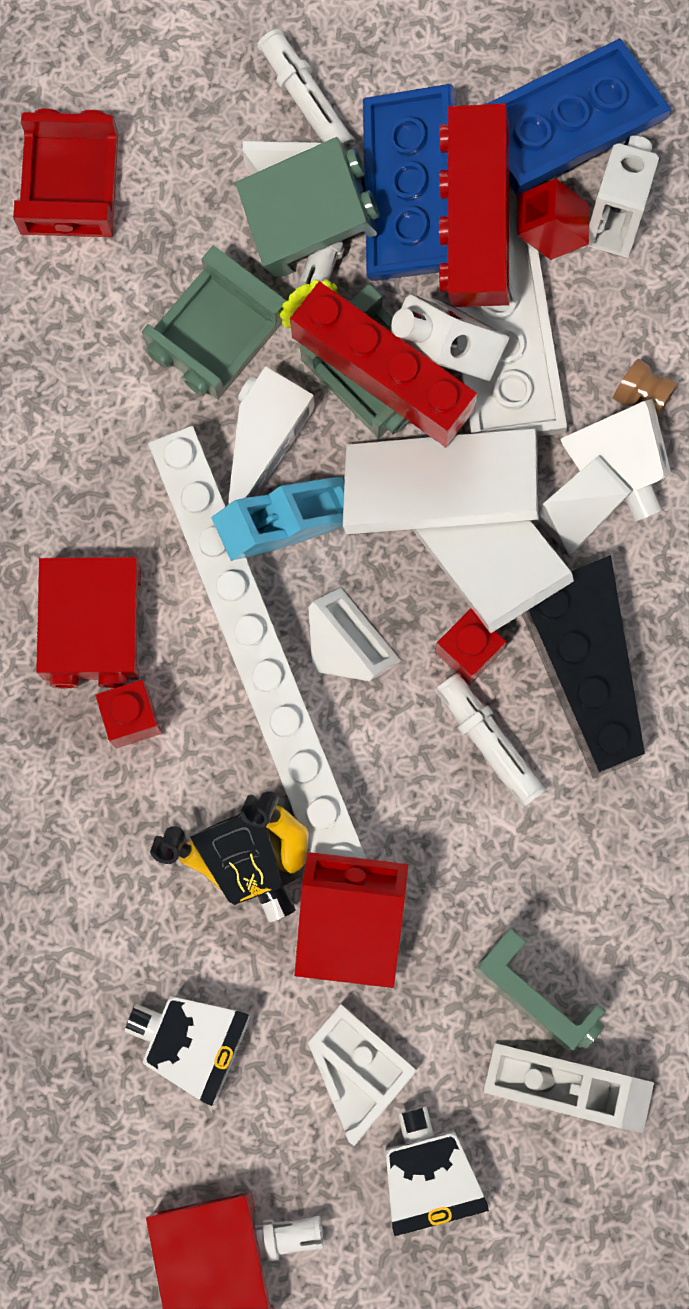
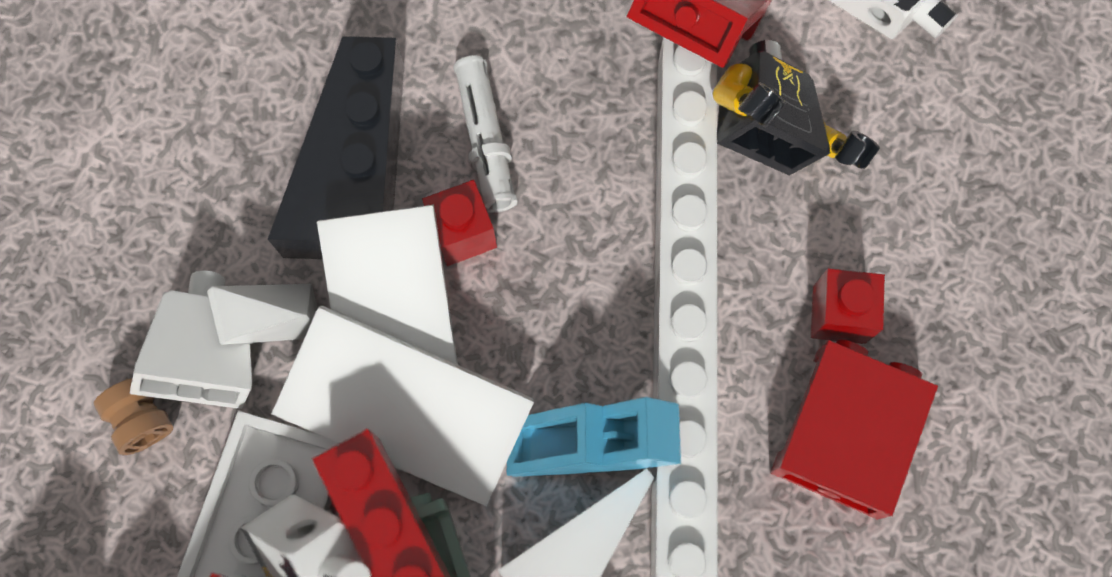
camera: 160 degrees left, 5 degrees down
(346, 641) = (581, 290): white slope -> none

